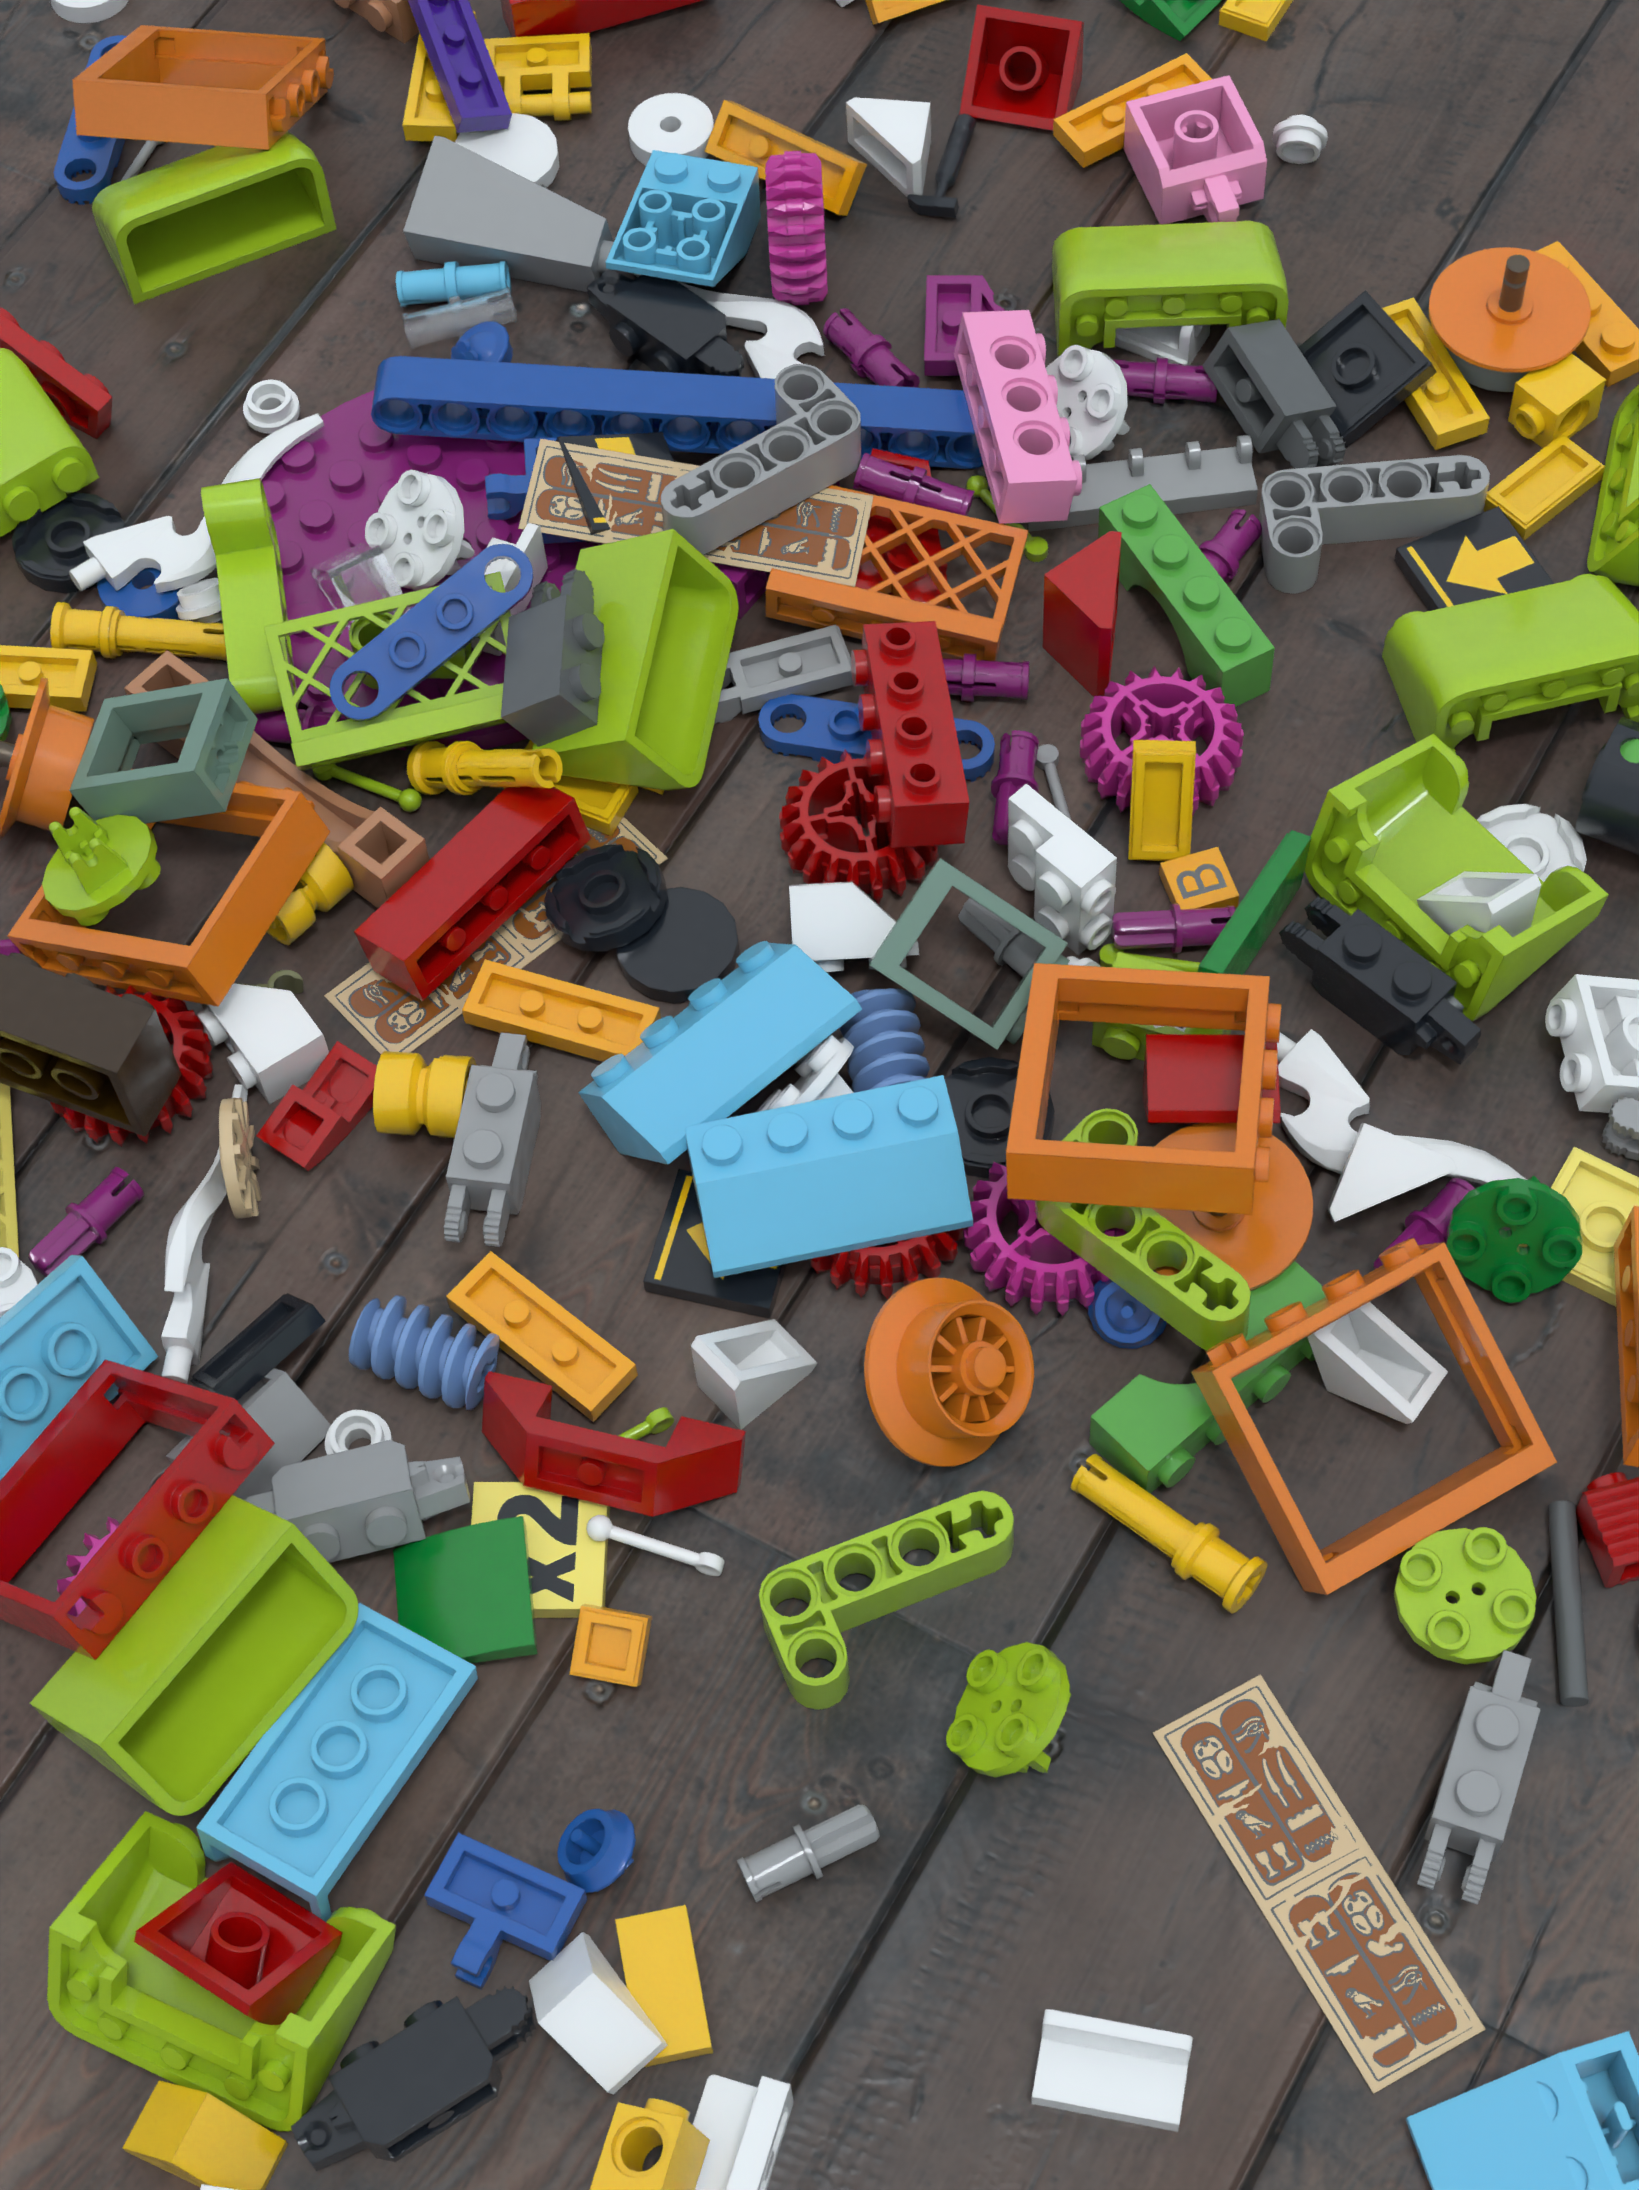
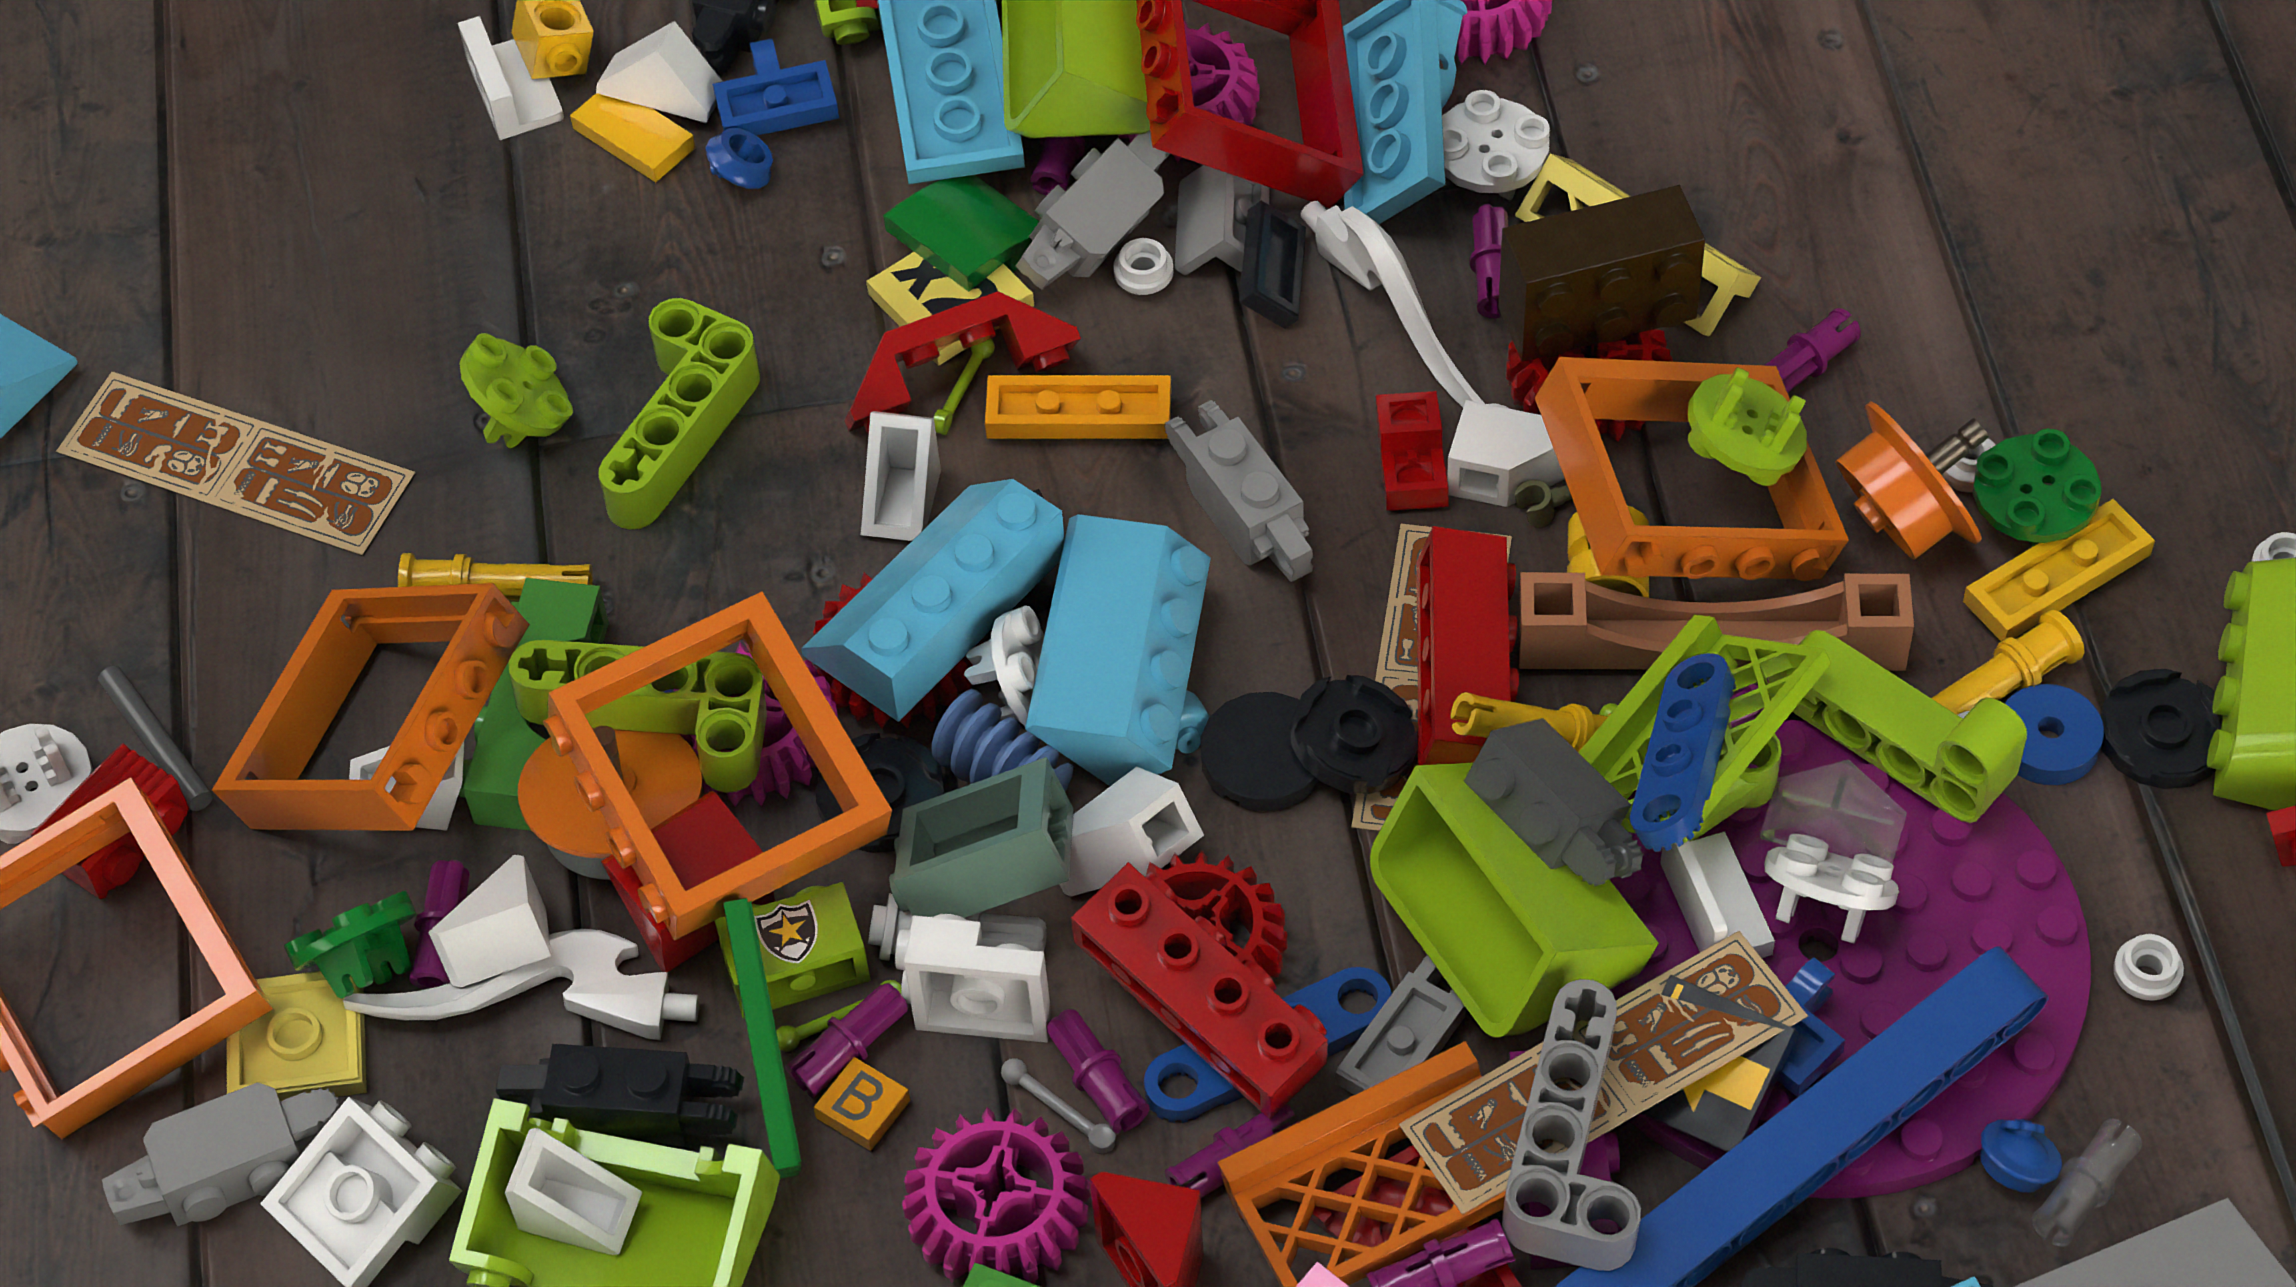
camera: 140 degrees right, 5 degrees down
(156, 544) = (2072, 749): white piece -> none
(199, 784) = (1769, 562): sand green window -> none
(236, 1158) = (1416, 343): tan wheel -> none
(417, 1094) = (1338, 485): yellow wheel -> none
(422, 1353) = (1145, 332): medium blue piece -> none
(451, 281) = (2141, 1208): medium azure pin -> none
(556, 1012) = (1296, 626): light orange plate -> none
(601, 1528) = (822, 361): white hinge -> none
(610, 1645) = (839, 266): light orange tile -> none
(808, 1851) = (597, 245): light grey axle -> none
(946, 1371) = (729, 535): orange piece -> none
(1112, 2070) = (296, 265): white panel -> none
(1161, 799) = (937, 1110): yellow tile -> none
(1453, 1565) = (208, 643): lime plate -> none
(1482, 1776) = (142, 561): light grey hinge -> none

